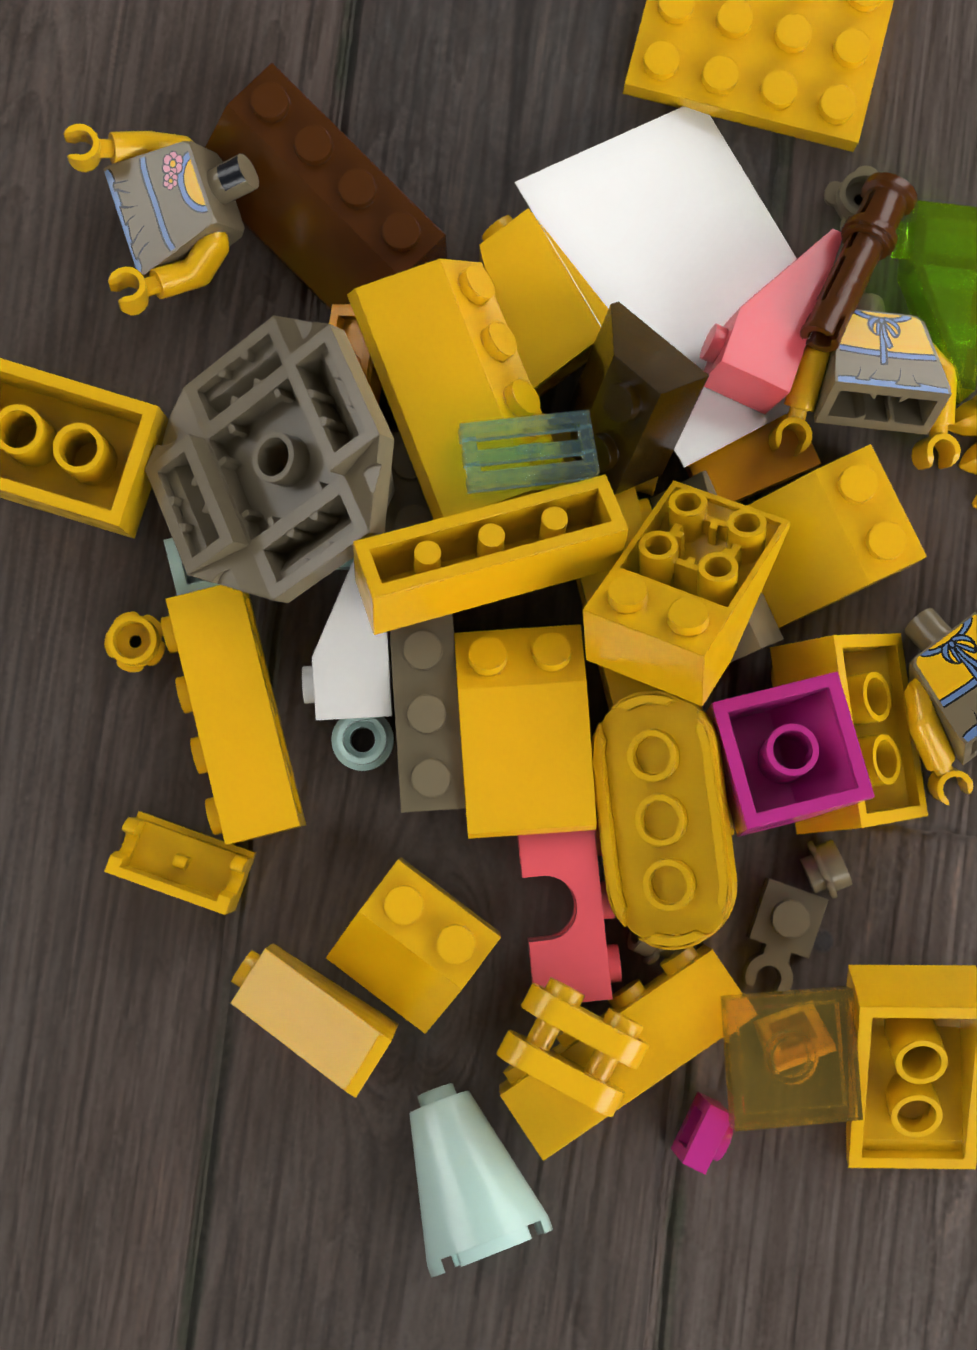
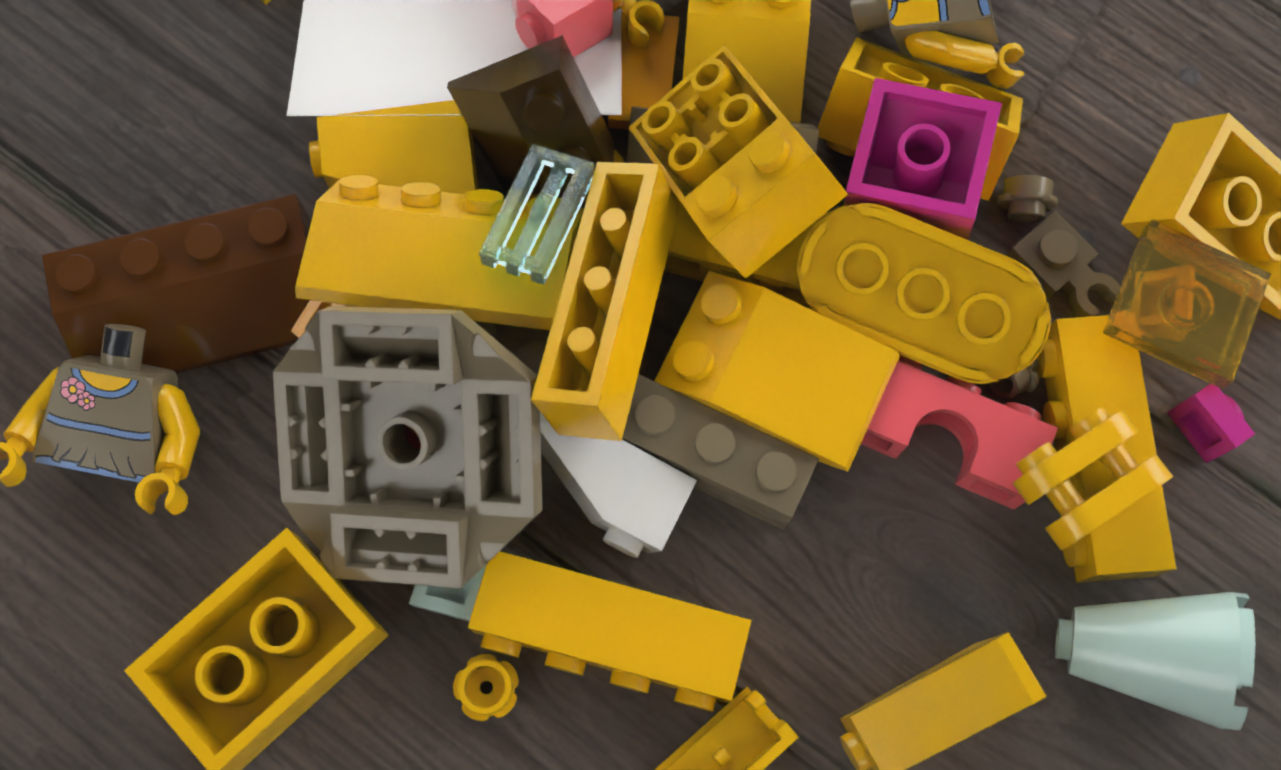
camera: 60 degrees left, 10 degrees down
(368, 760) = (718, 521): light aqua plate -> none
(413, 945) = (914, 582): yellow slope -> none

